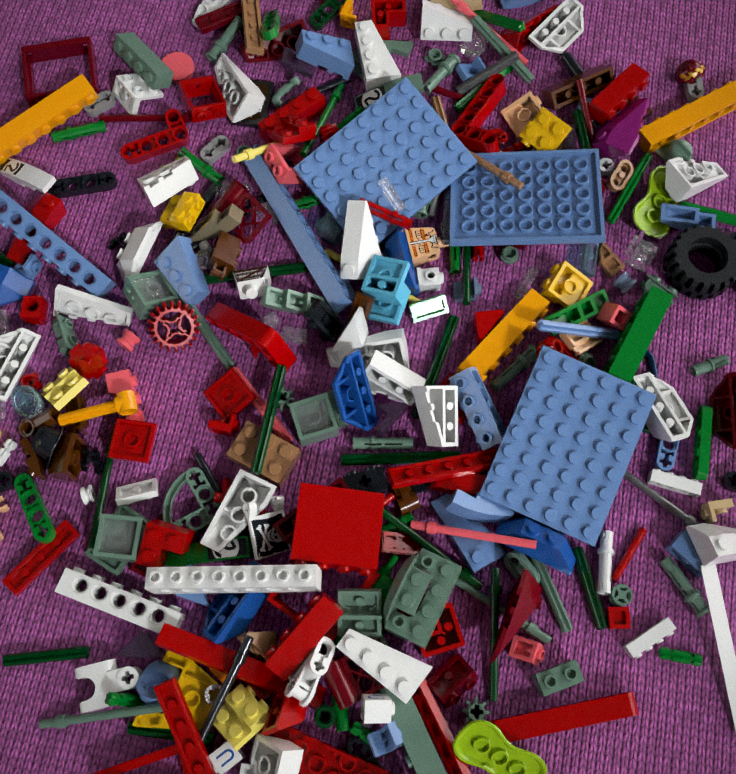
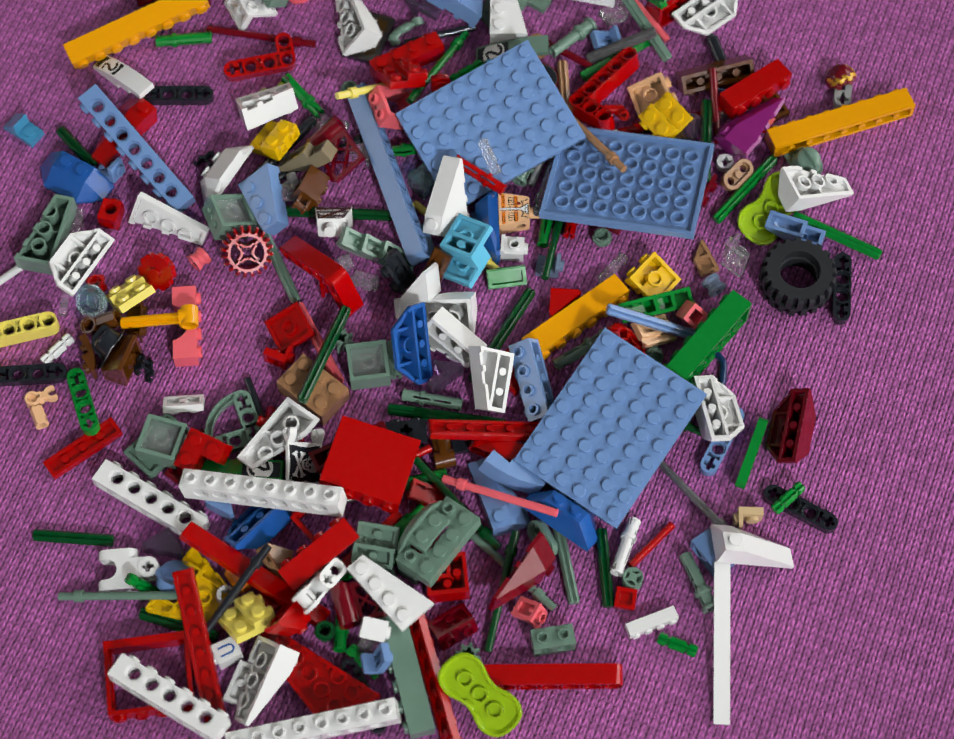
camera: 10 degrees right, 5 degrees down
(64, 328) = (136, 235): sand green hinge -> none
(87, 494) = (135, 398): white bush -> none
(101, 104) = (211, 14): light grey beam -> none
(101, 495) = (164, 362): dark green bar -> none
(132, 440) = (188, 353): red tile -> none
(206, 86) = (324, 12): red window -> none
(215, 149) = (320, 80): light grey beam -> none
(435, 57) = (571, 13): sand green plate -> none
(584, 257) = (678, 252): clear light blue panel -> none
(656, 281) = (757, 302): sand green hinge -> none
(674, 483) = (714, 486): white piece -> none
(709, 365) = (780, 380): sand green axle -> none

